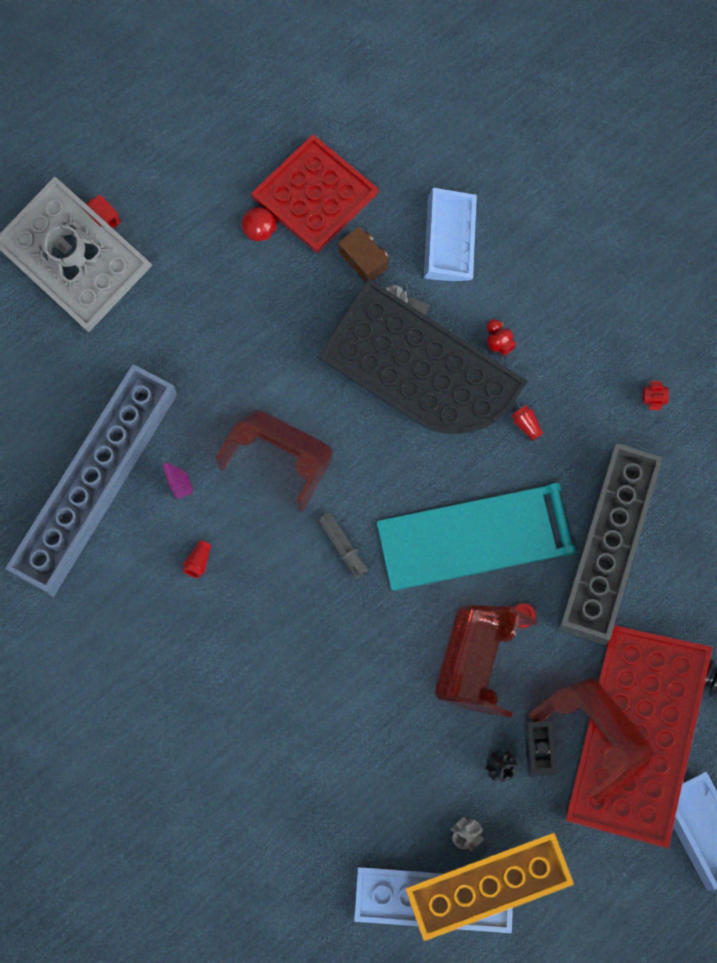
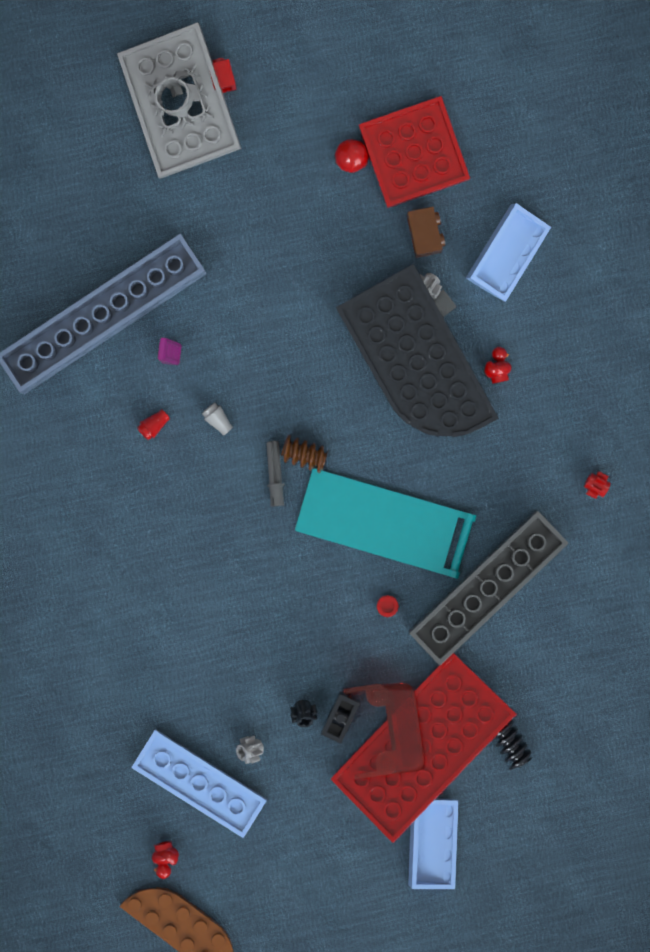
camera: 25 degrees right, 15 degrees up
(258, 521) = (216, 417): none -> light grey cone
(312, 453) = (290, 383): clear red windscreen -> none
(361, 510) = (304, 454): none -> reddish brown piece
(472, 656) = (326, 619): clear red windscreen -> none
(488, 886) = (242, 798): light orange brick -> none
(527, 422) = (480, 451): red cone -> none

